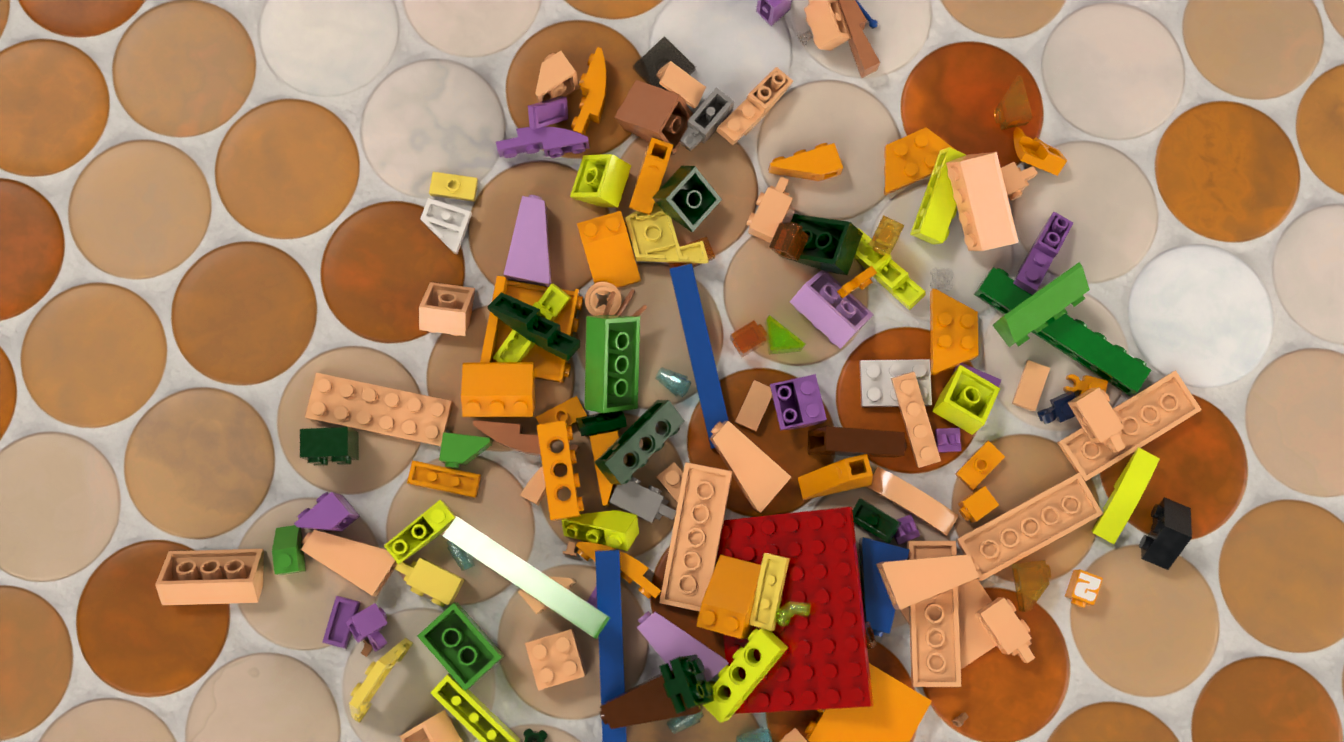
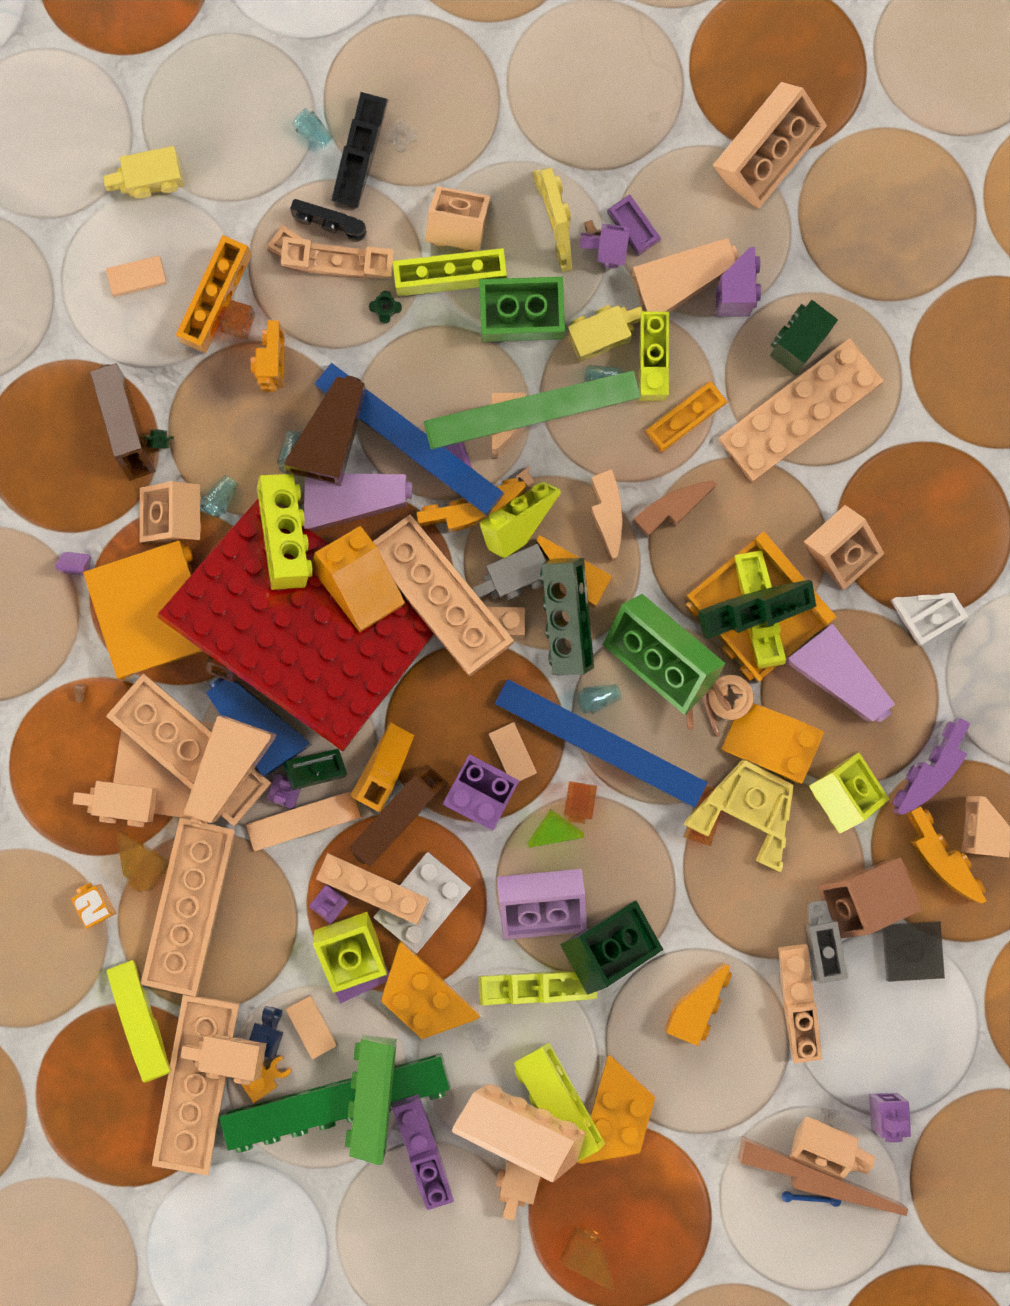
camera: 130 degrees right, 5 degrees up
(287, 551) = (738, 226): bright green slope -> none
(453, 186) = (960, 650): light yellow plate -> none
(462, 449) = (700, 453): bright green slope -> none
(498, 389) = (726, 529): light orange slope -> none
(547, 435) = (571, 490): light orange brick -> none
(548, 112) = (958, 797): medium lavender tile -> none
(555, 659) = (439, 381): light nougat brick -> none
(566, 411) = (653, 568): light orange plate -> none
(601, 422) = (619, 592): dark green plate -> none
(650, 175) = (813, 842): light orange slope -> none
(680, 82) = (879, 947): light nougat panel -> none
(687, 197) = (762, 857): dark green slope -> none
(688, 681) = (318, 473): dark green plate -> none
(752, 469) = (455, 699): light nougat slope -> none
(769, 591) = (334, 614): light yellow plate -> none
(771, 211) = (682, 928): light nougat hinge -> none
(789, 241) = (639, 918): clear orange brick -> none
(789, 609) = (302, 617): clear neon green arm -> none
(861, 281) = (542, 954): light orange plate -> none
(886, 235) = (565, 1011): clear yellow slope -> none
(977, 505) = (248, 876): light orange brick -> none
(980, 465) = (281, 912): light orange plate -> none
(1038, 153) = (522, 1238): light orange slope -> none
(1168, 533) = (72, 1025): black brick -> none

